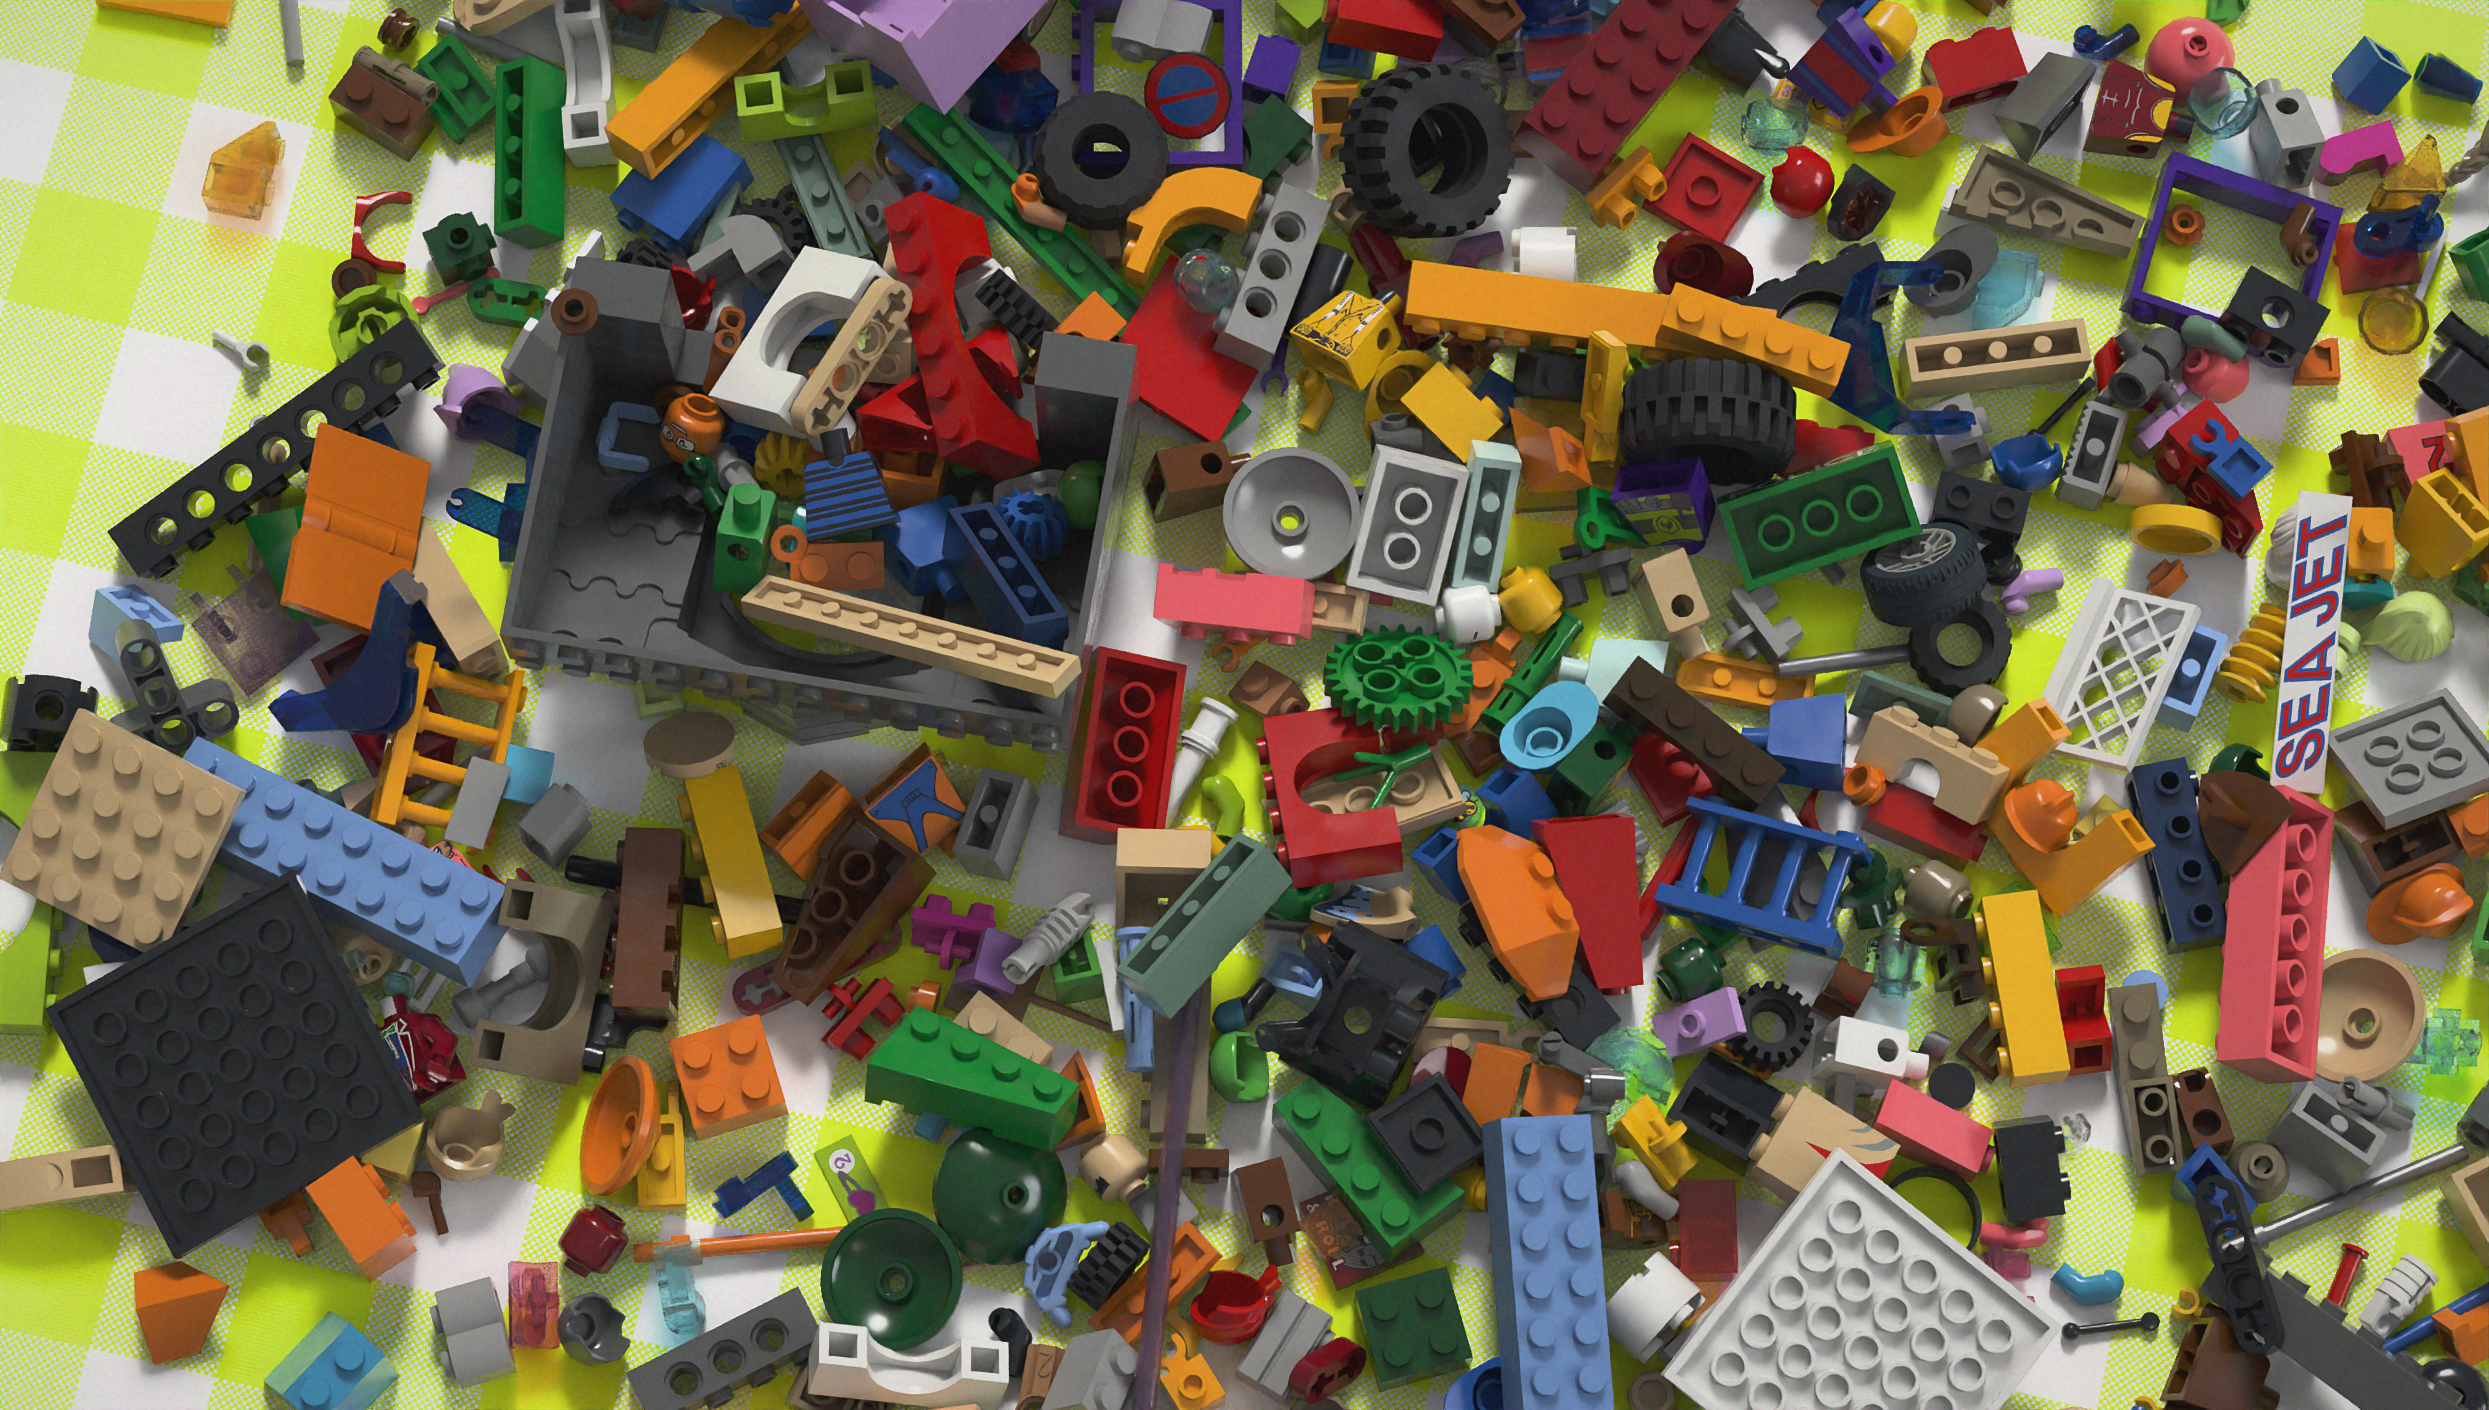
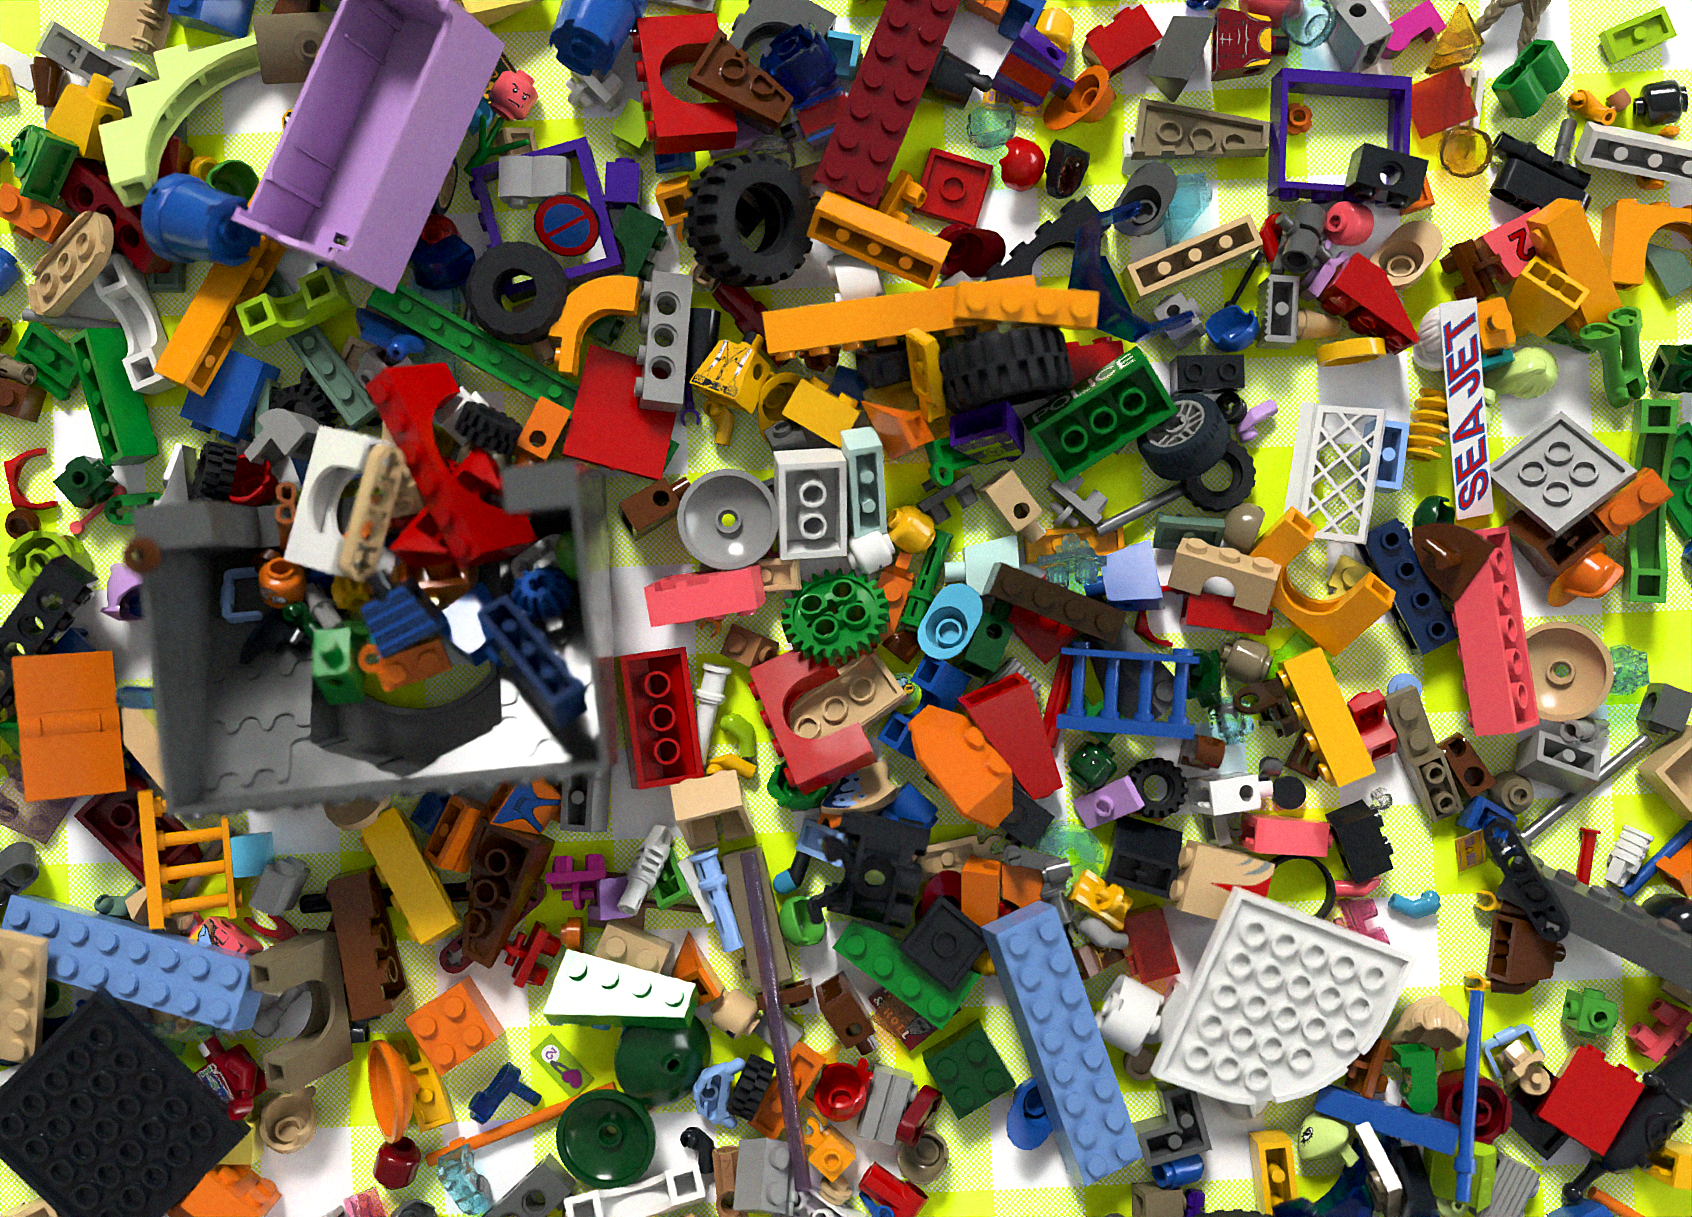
camera: 10 degrees left, 15 degrees up
(378, 688) = (118, 830): clear blue piece -> none
(429, 1185) = (269, 1156): reddish brown hand -> none
(477, 802) = (220, 887): light grey sticker -> none
(784, 783) = (430, 810): none -> blue plate
(912, 636) = (478, 723): tan plate -> none
(1031, 206) = (478, 341): arm -> none
(1204, 925) = (749, 847): sand green brick -> none
(1205, 280) = (619, 362): clear light blue head -> none
(1392, 764) = (849, 678): green plant -> none
(1471, 249) = (799, 282): medium lavender arm -> none
(1587, 216) = (878, 239): none -> light orange brick
(1736, 695) = (1069, 558): none -> clear light blue hips
(1864, 784) = (1180, 602): orange plate -> none
(2042, 814) = (1309, 589): orange piece -> none
(2147, 1322) = (1459, 916): black hinge -> none
(2166, 578) = (1349, 386): orange plate -> none
(2178, 1224) = (1470, 850): none -> yellow sticker
(2210, 336) = (1344, 202): sand green arm -> none
(2234, 465) = (1392, 300): blue plate -> none
(2286, 427) = (1409, 253): none -> tan piece
(2295, 238) = (1384, 109): reddish brown arm -> none
(2407, 230) = (1457, 82): clear blue piece -> none

